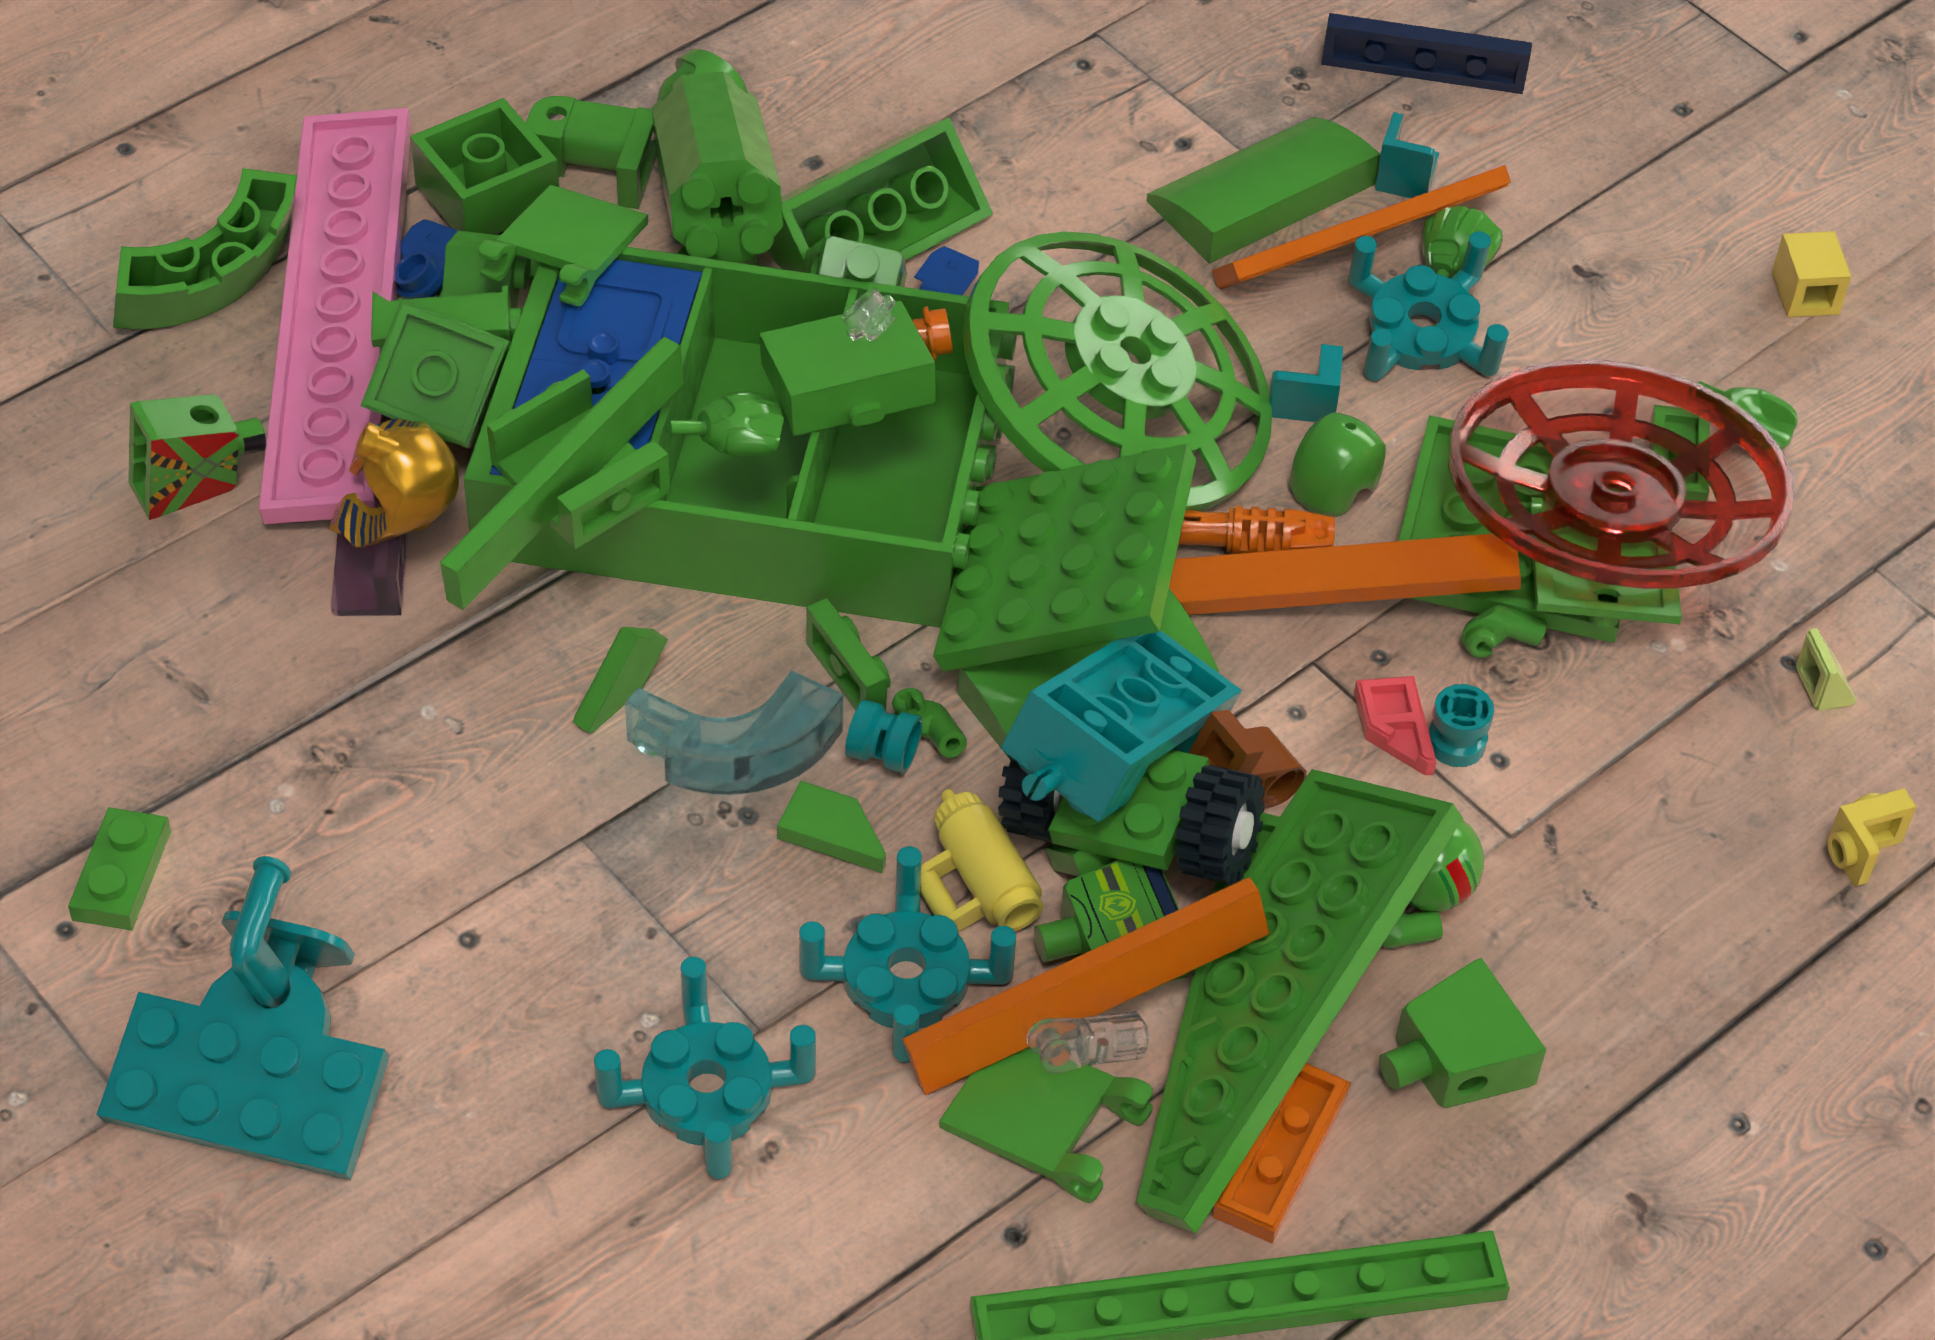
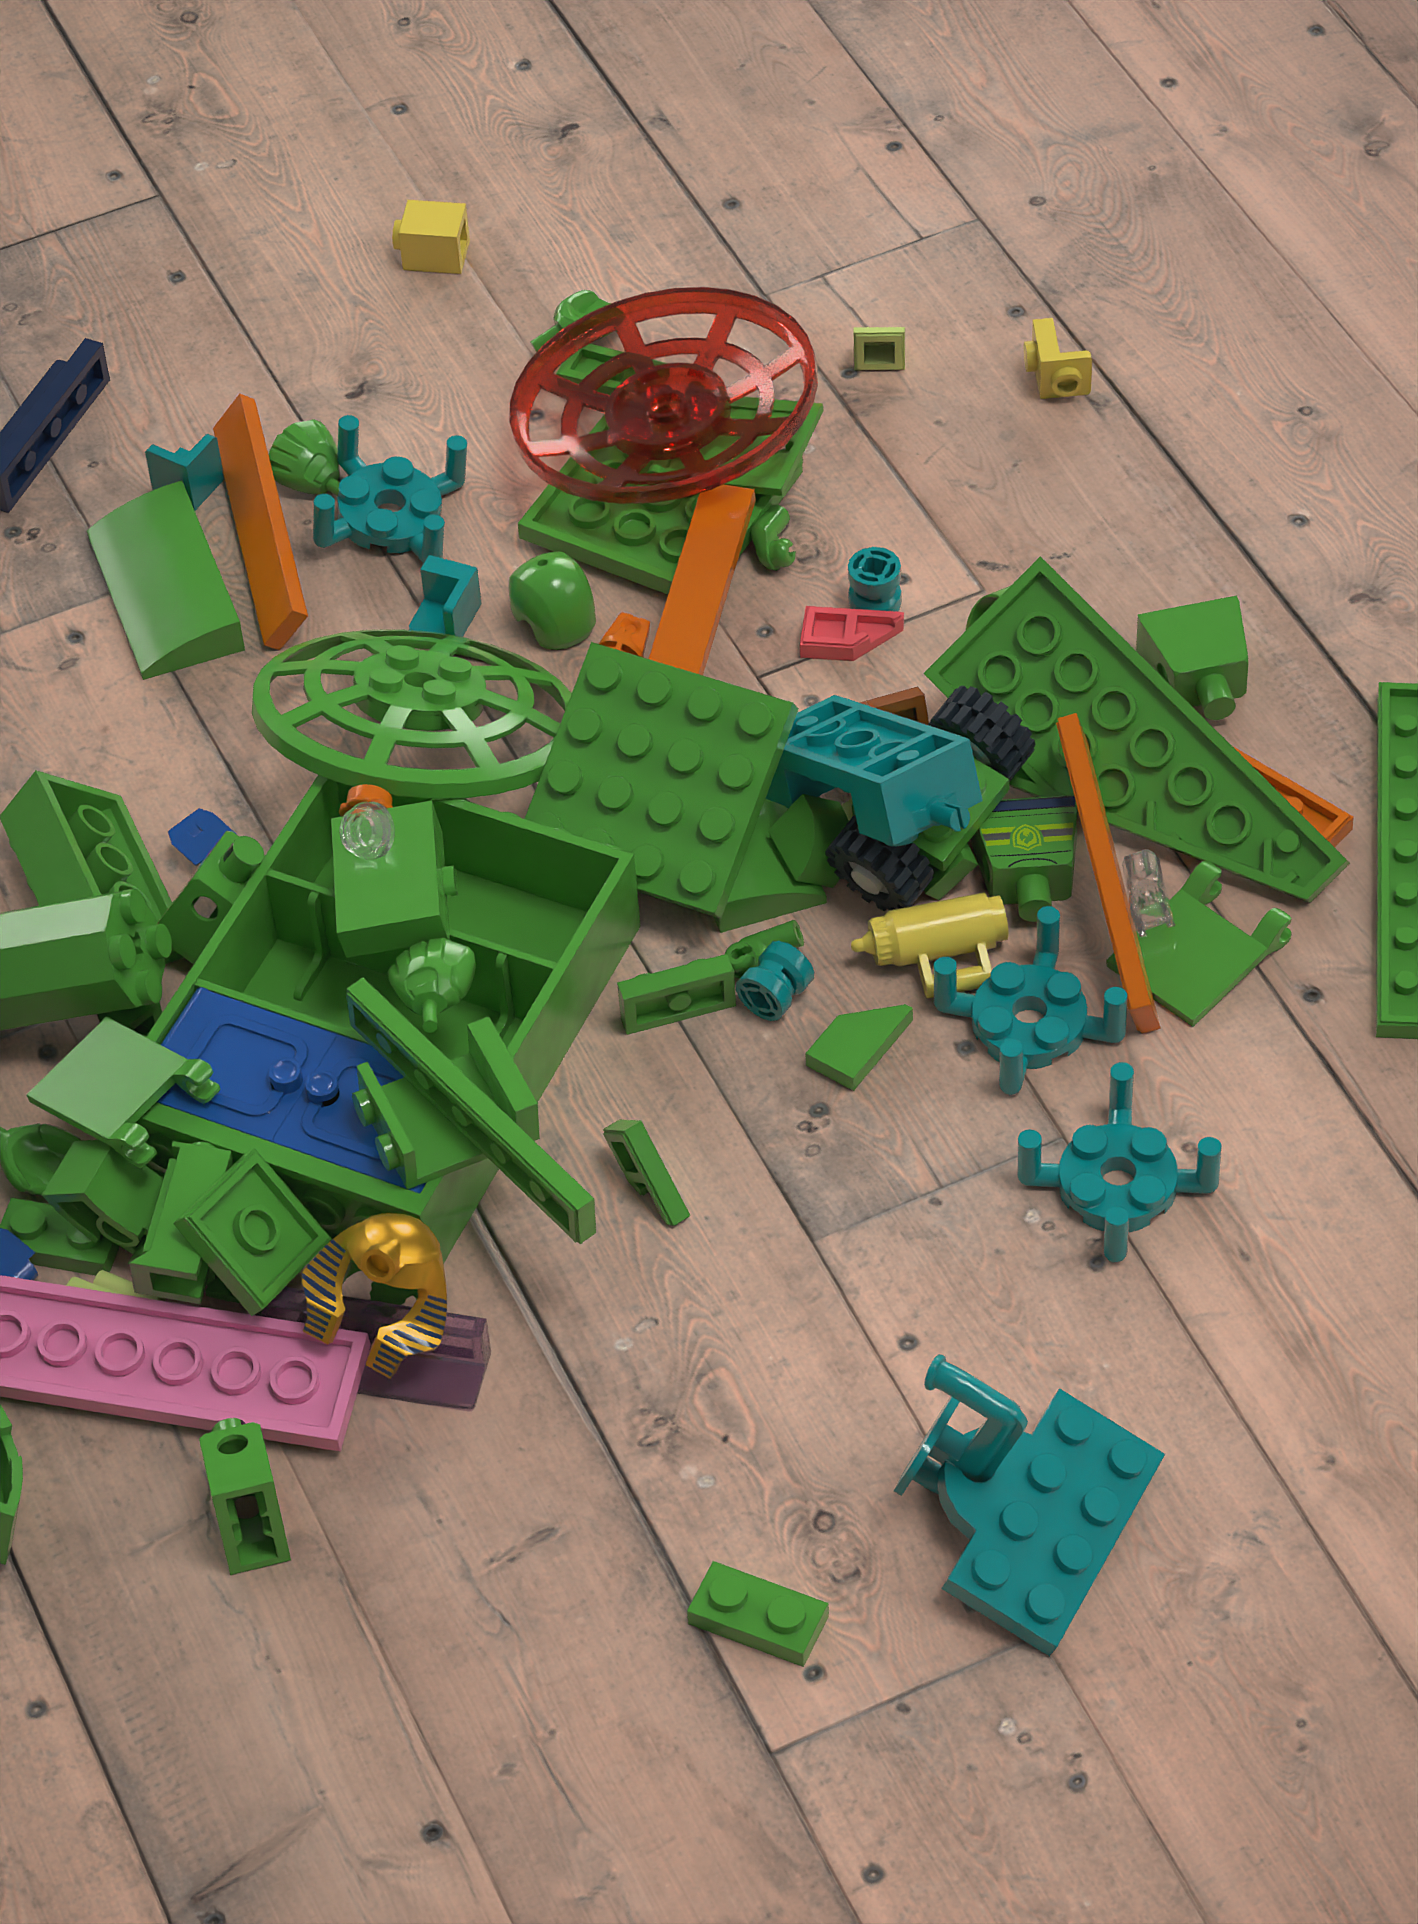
camera: 70 degrees left, 0 degrees up
(419, 275) = (50, 1262): blue plate -> none
(739, 751) = (754, 1055): clear light blue arch -> none

